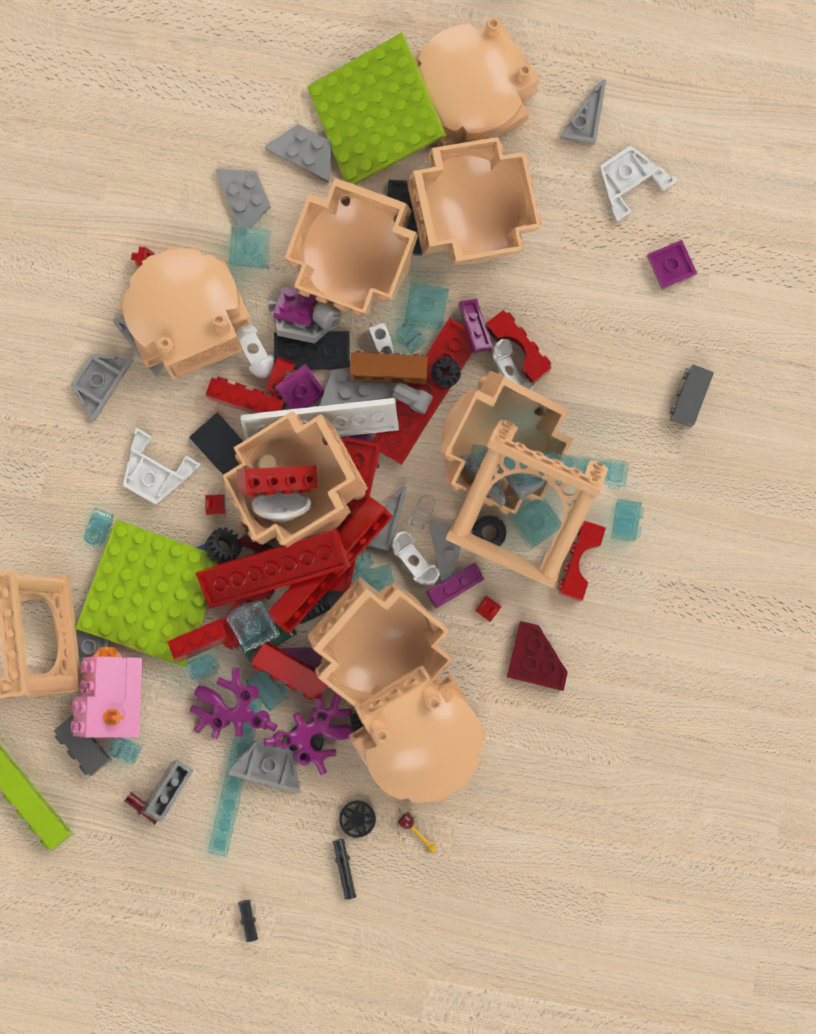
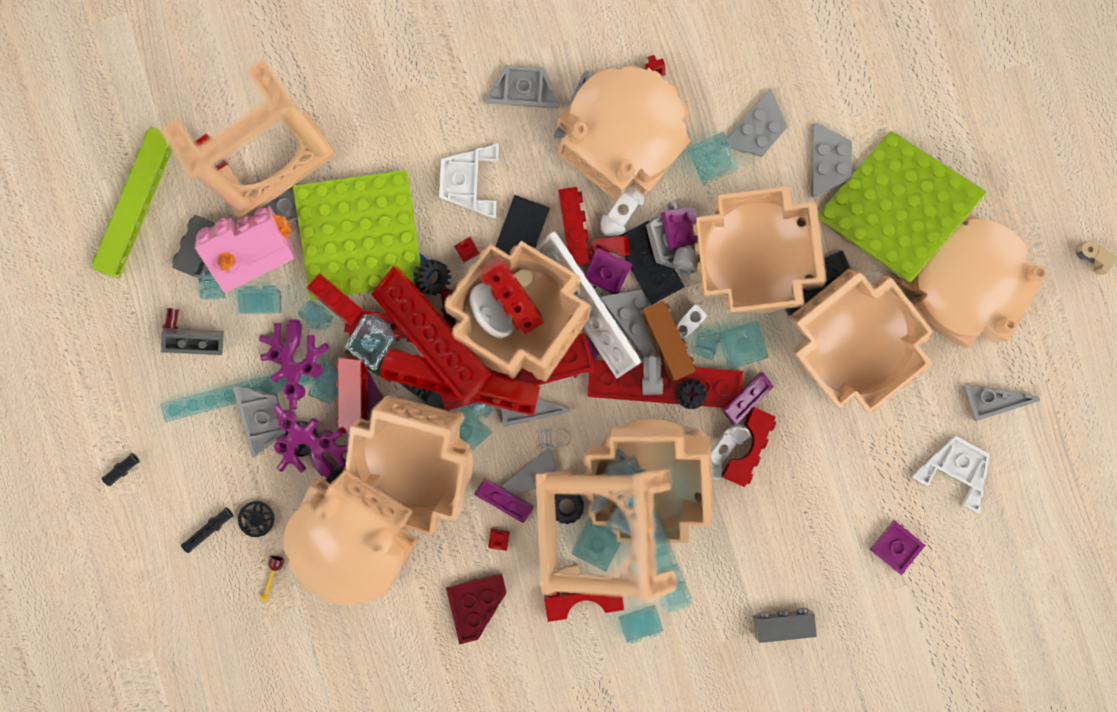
camera: 65 degrees right, 5 degrees up
(98, 525) = (394, 157): clear light blue piece -> none
(162, 713) = (259, 300): none -> clear light blue brick
(403, 548) = (500, 466): white piece -> none

